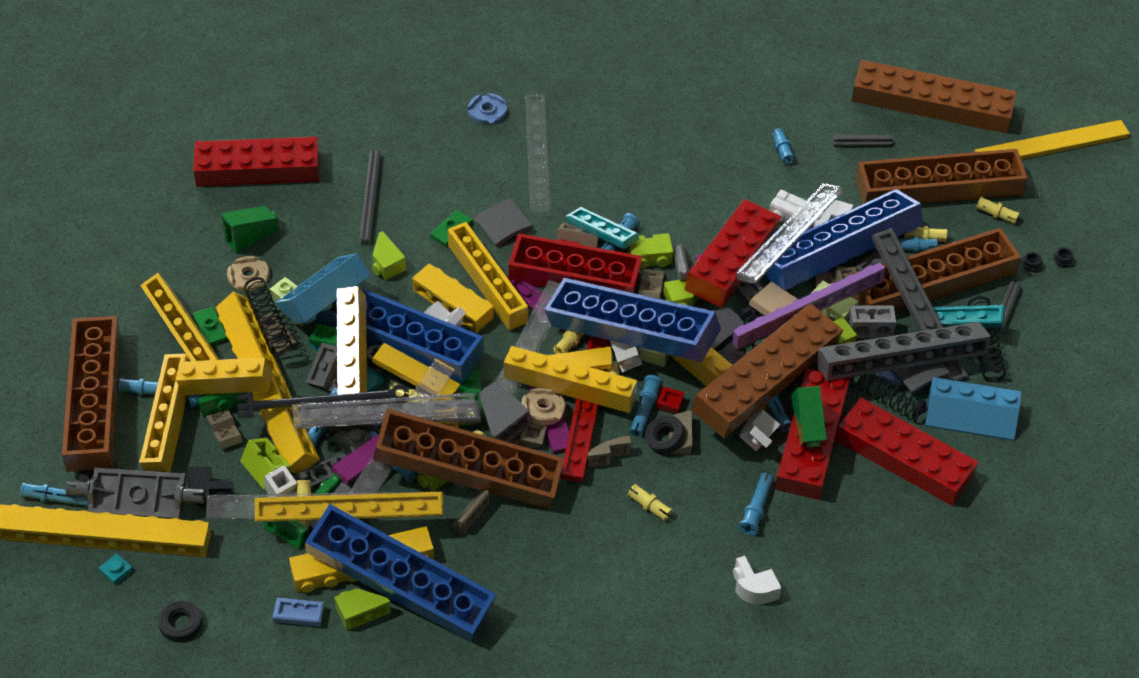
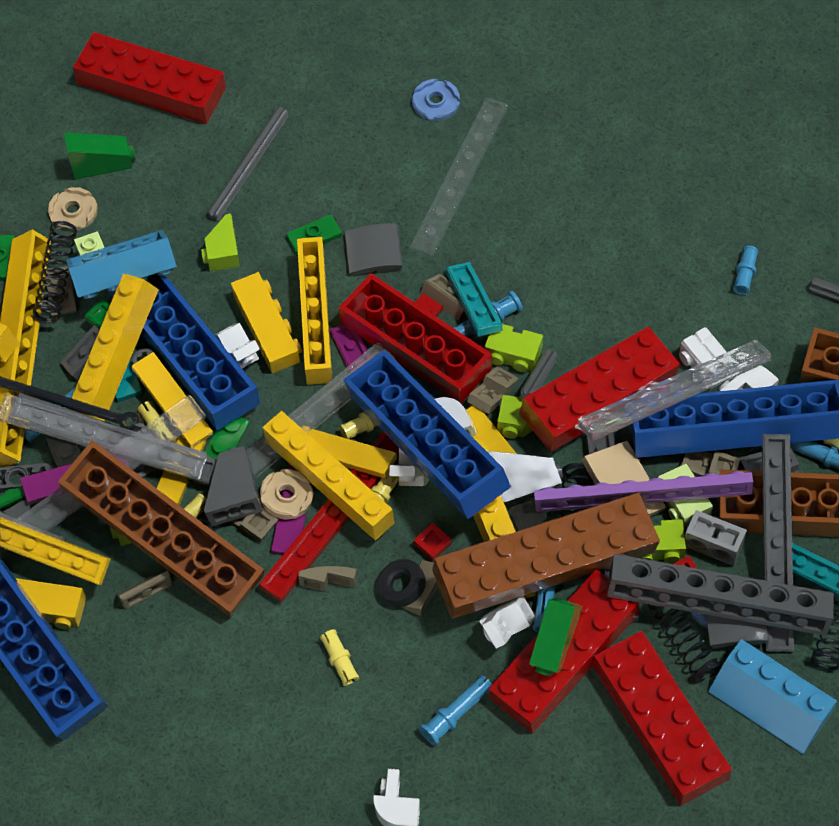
camera: 30 degrees right, 10 degrees up
(647, 398) = (408, 529): dark azure pin -> none

